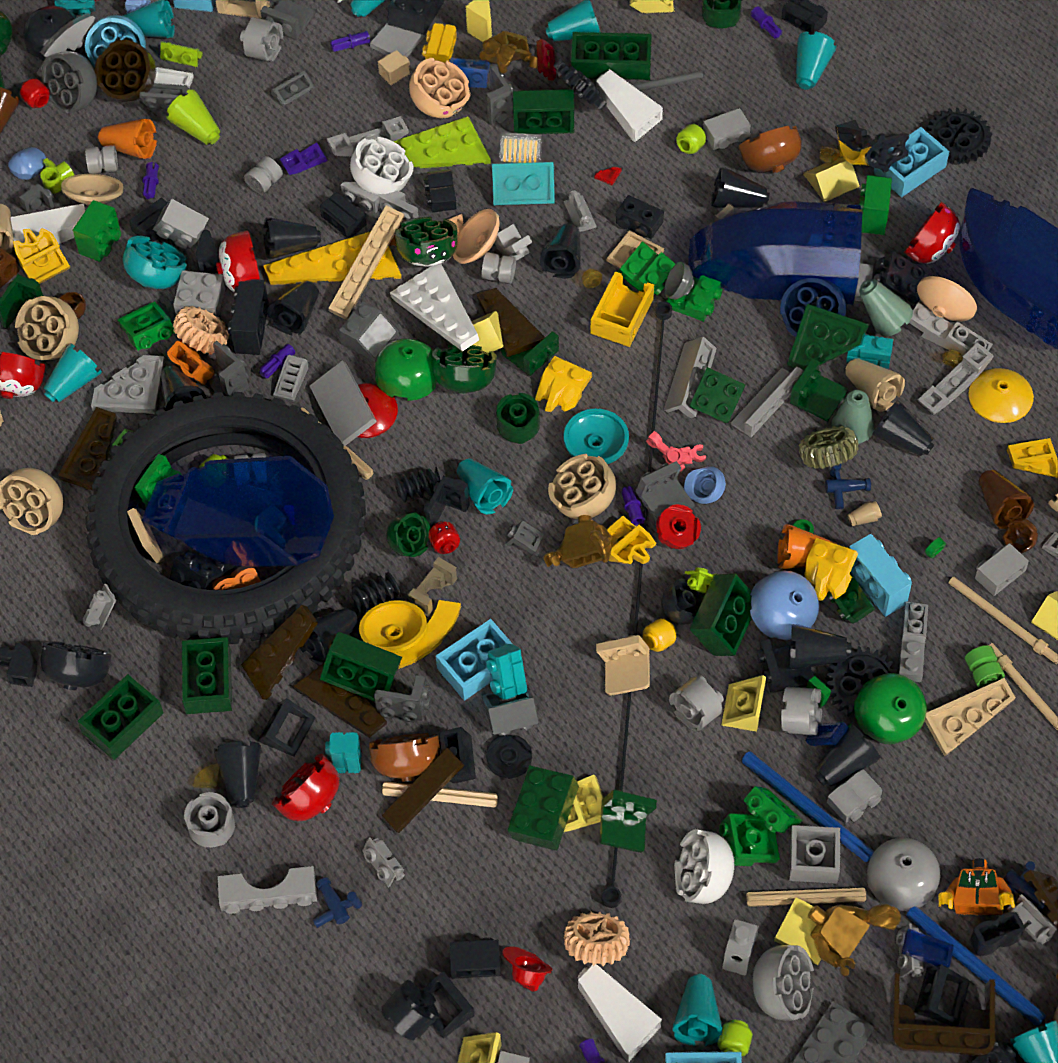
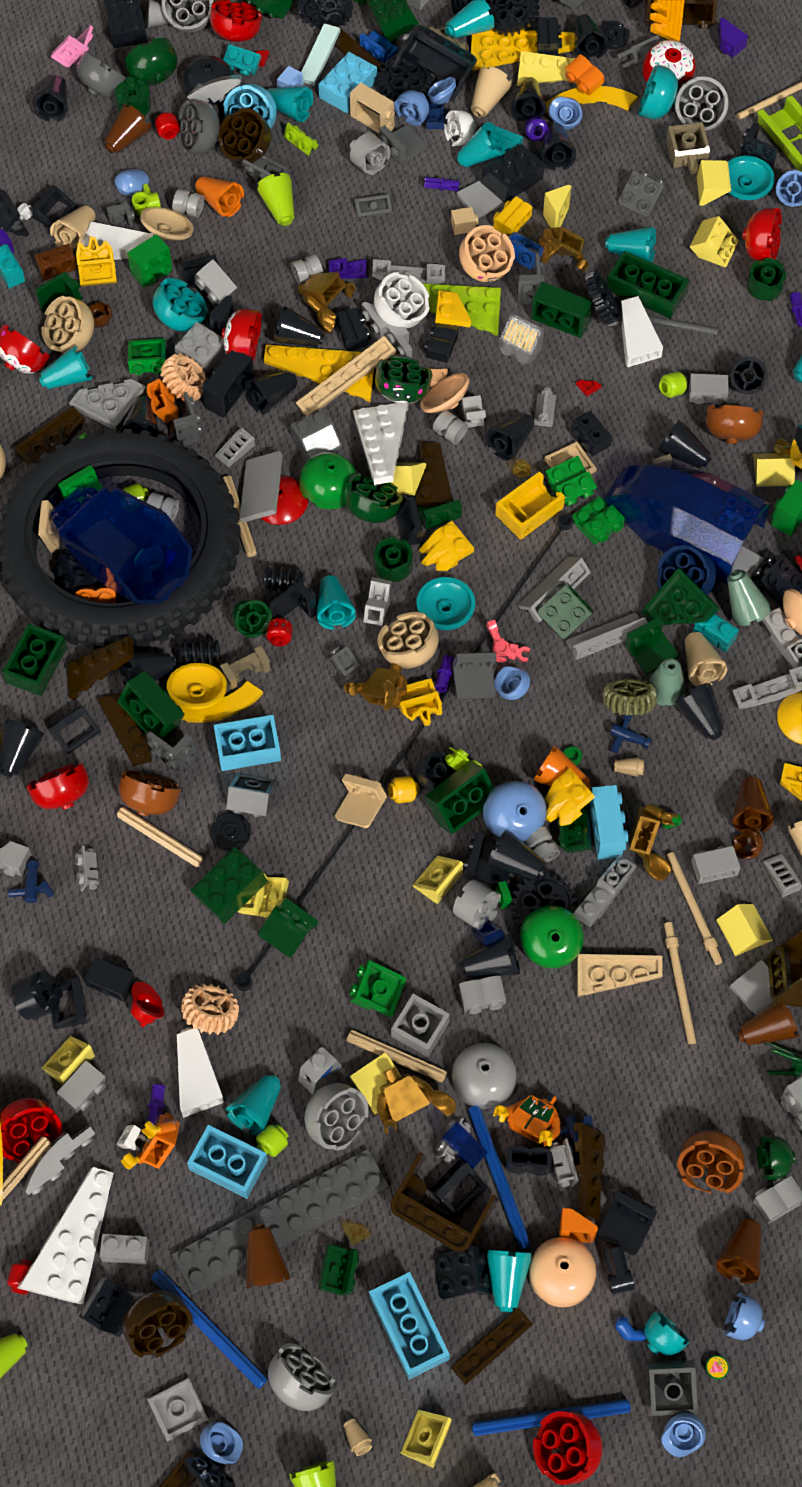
camera: 25 degrees right, 5 degrees up
(150, 180) = (217, 236): dark purple axle -> none
(168, 76) = (282, 156): white tile -> none
(276, 361) = (231, 428): dark purple axle -> none
(292, 190) = (320, 292): none -> pearl gold torso
(344, 752) = (102, 769): teal brick -> none
(423, 790) = (145, 827): dark brown tile -> none
(434, 155) = (451, 310): none -> yellow wing
(460, 743) = (188, 812): black brick -> none
(506, 671) = (260, 763): teal brick -> none
(513, 374) = (410, 522): none -> black tile
(523, 183) = (510, 364): teal plate -> none
(526, 464) = (378, 601): none -> light grey brick
(546, 59) = (591, 262): dark red tile -> none
(669, 535) = (480, 705): red plate -> none
(679, 281) = (588, 503): dark grey piece -> none
(696, 703) = (398, 858): light grey brick -> none
(712, 866) = (331, 995): white cylinder -> none
(759, 100) = (748, 375): none -> black cylinder
(771, 809) = (407, 973): green plate -> none
(806, 805) = (440, 983): blue axle -> none
(825, 622) = (541, 844): none -> light grey wheel
(919, 563) = (643, 837): none -> pearl gold torso
(952, 358) = (782, 667): clear yellow plate -> none
(984, 666) = (652, 937): bright green wheel -> none

